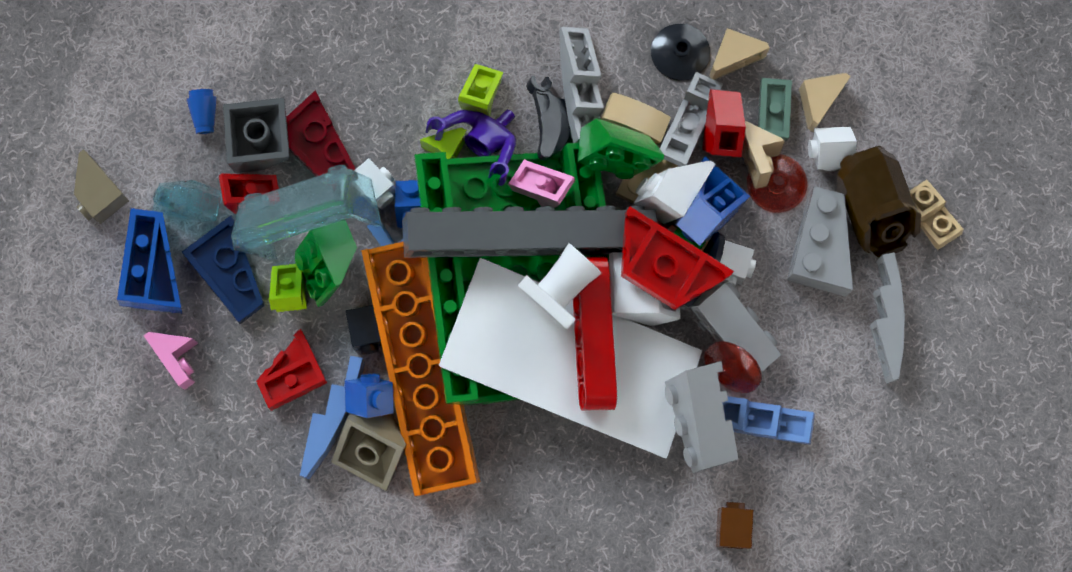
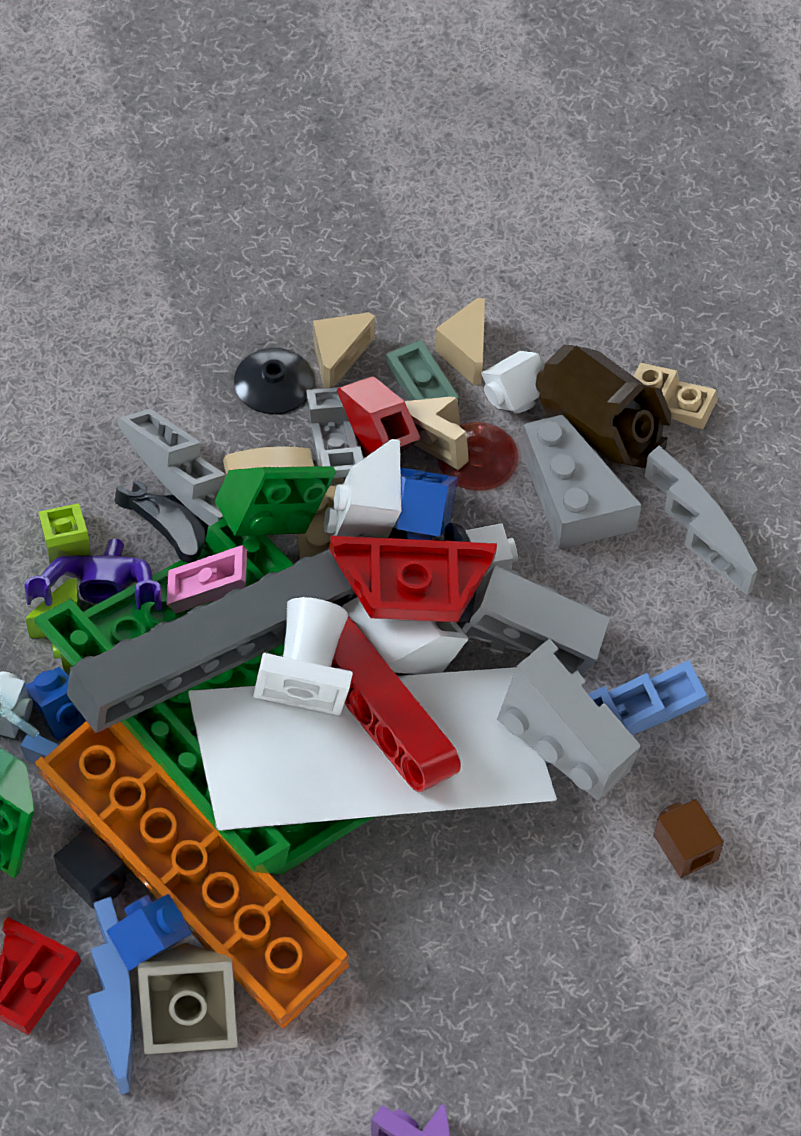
camera: 30 degrees left, 20 degrees down
(739, 367) = (576, 650): clear red dish -> none

